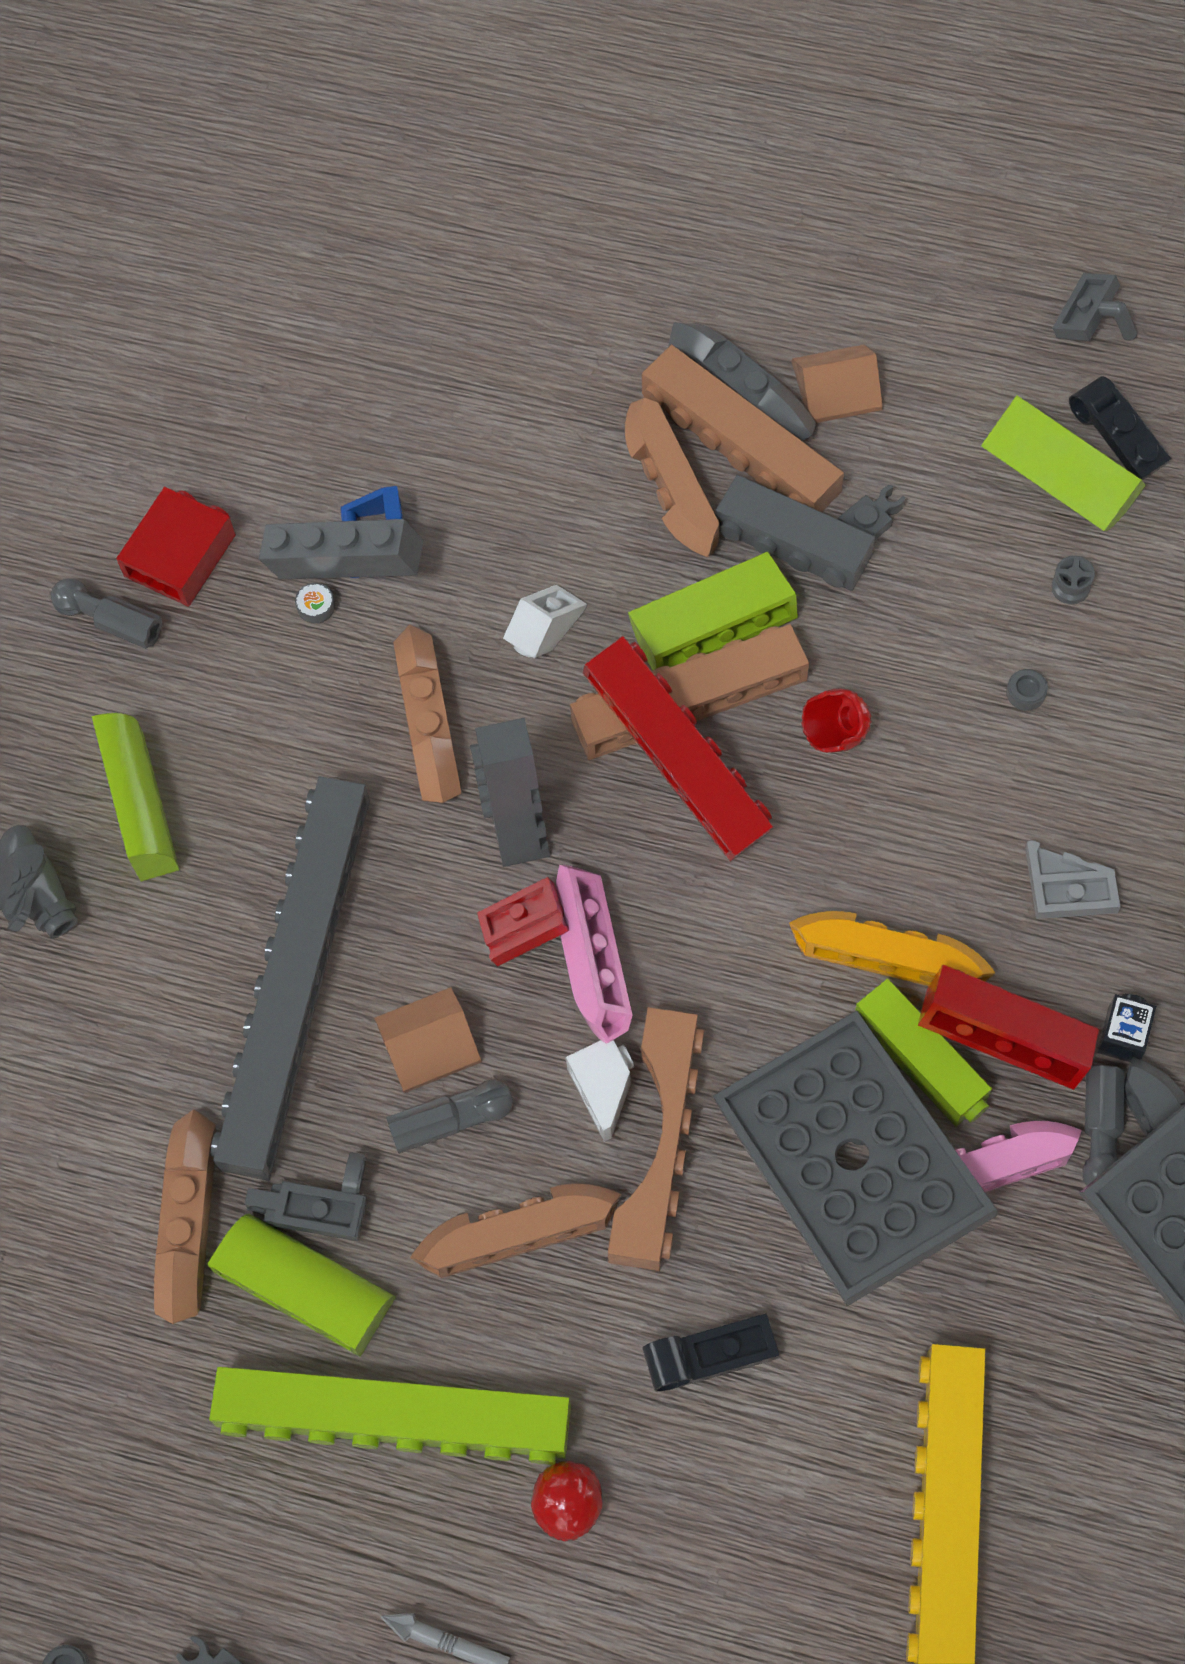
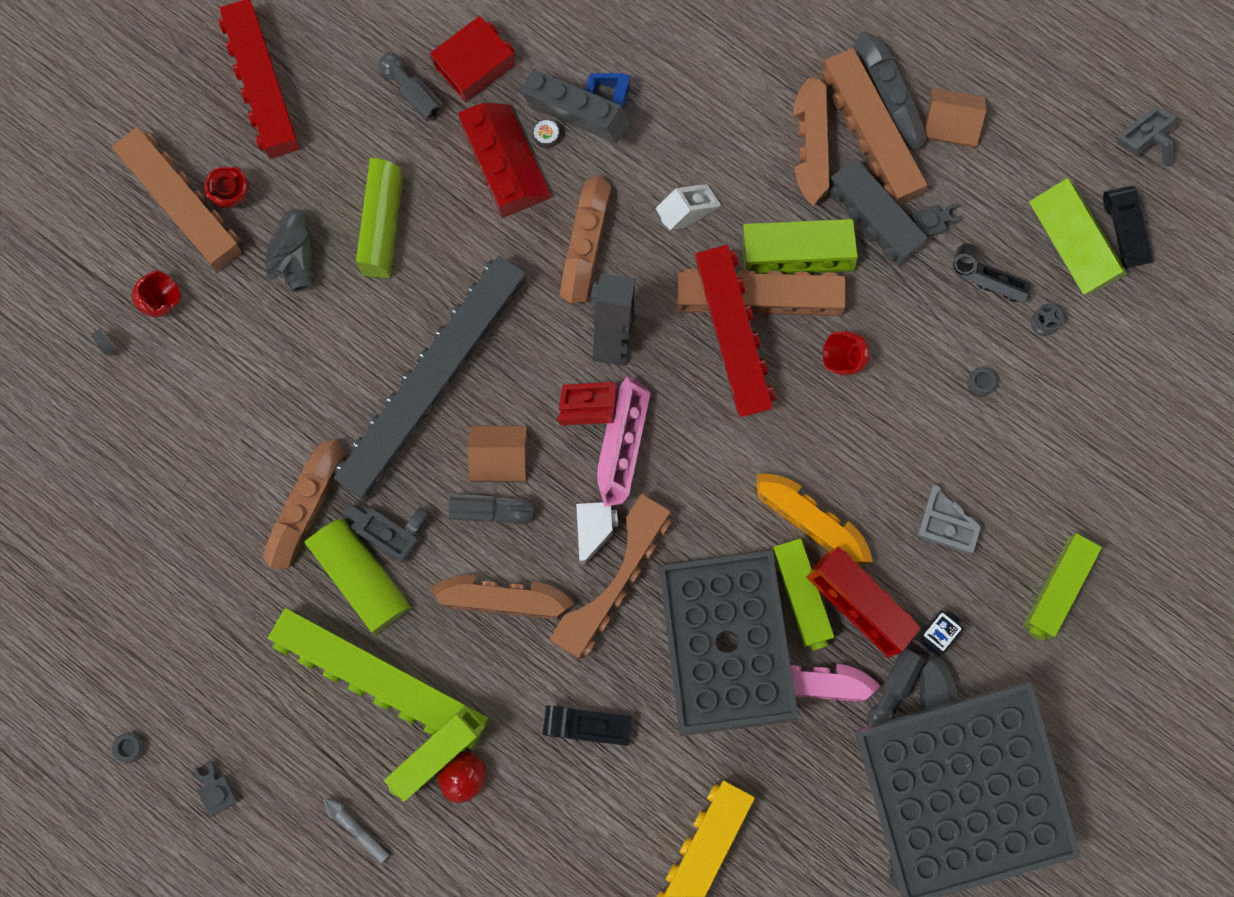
camera: 20 degrees right, 10 degrees up
(270, 654) = (503, 157): none -> red slope
(515, 1480) = (434, 753): none -> lime brick
(974, 558) = (988, 277): none -> black plate

